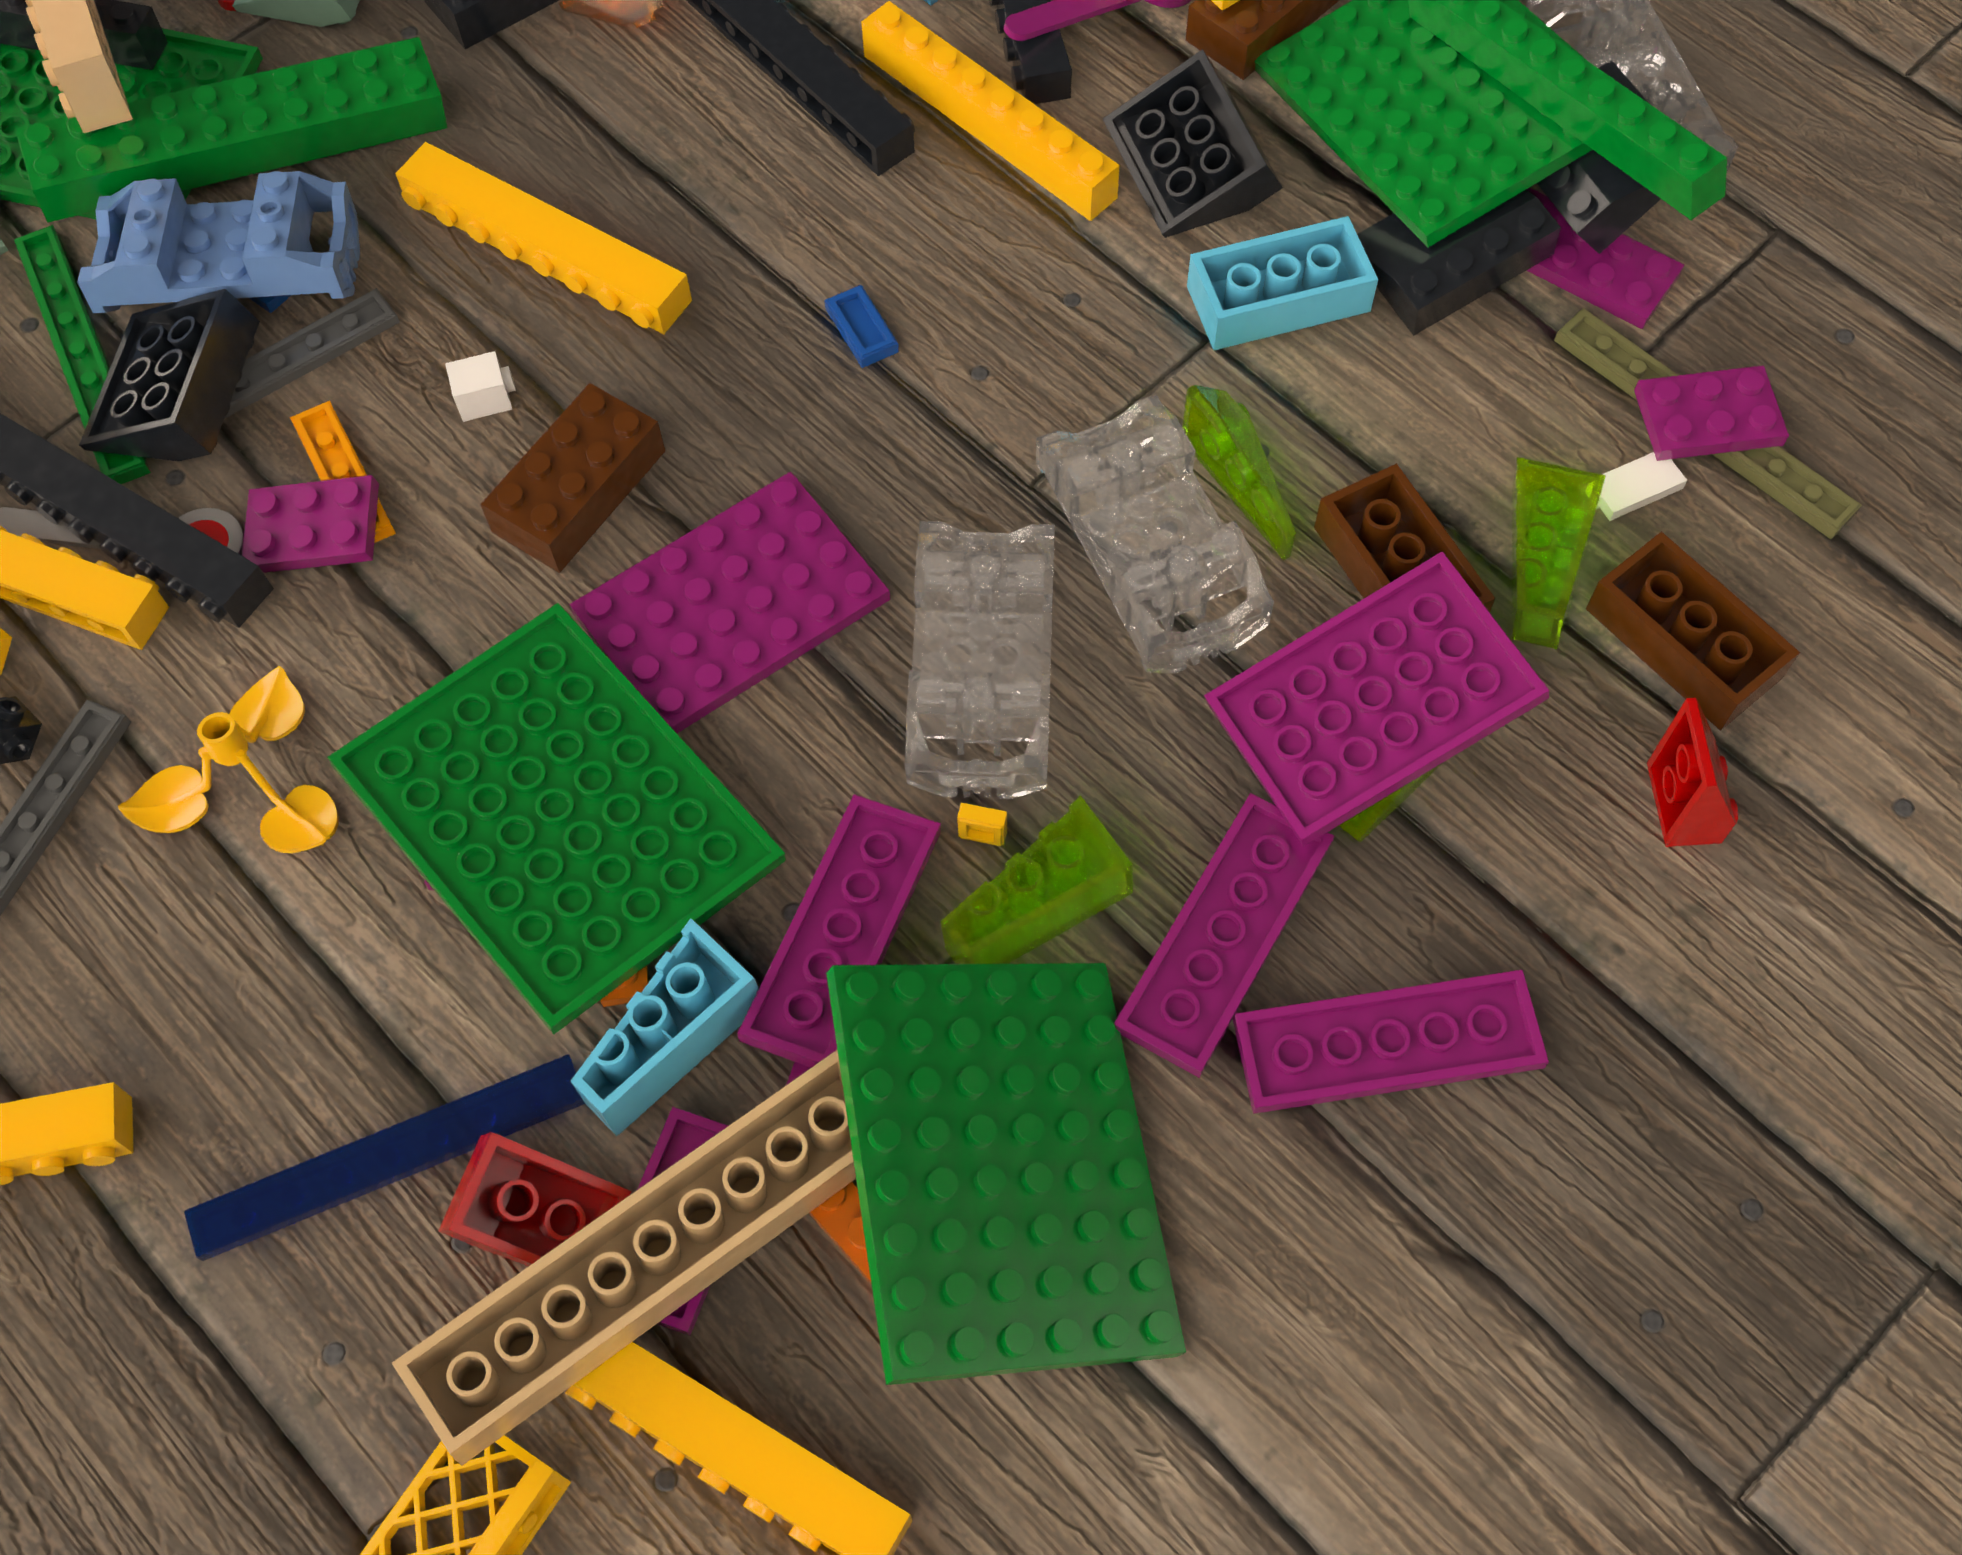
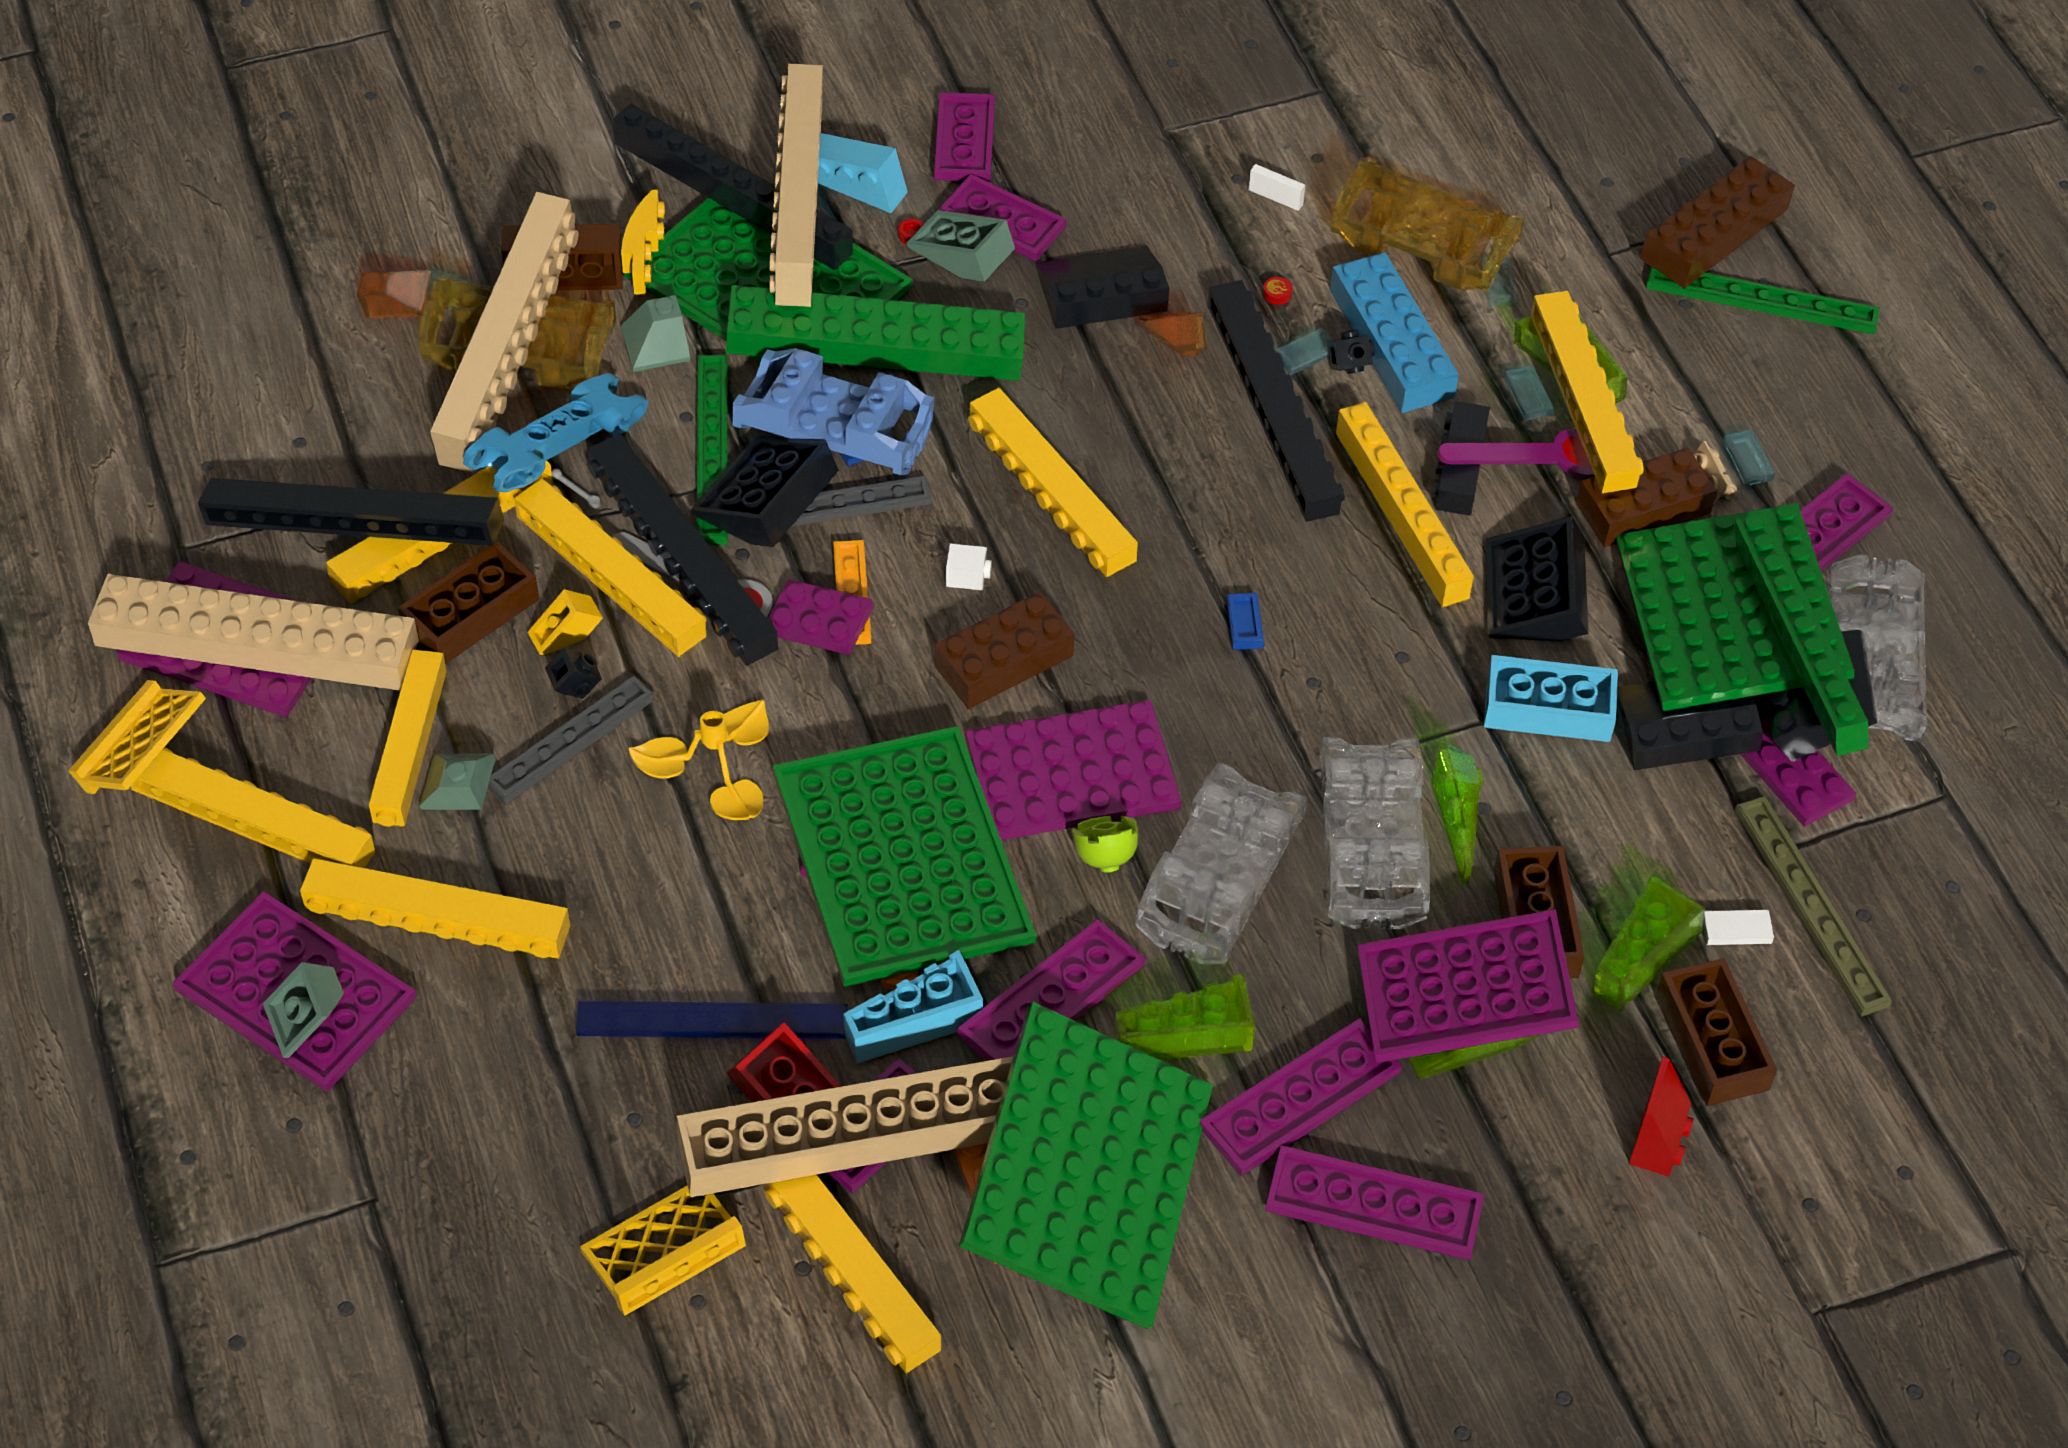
camera: 20 degrees right, 10 degrees down
(820, 684) = (1105, 842): none -> lime cylinder
(982, 824) = (1173, 969): yellow tile -> none
(1710, 413) = (1814, 898): magenta plate -> none

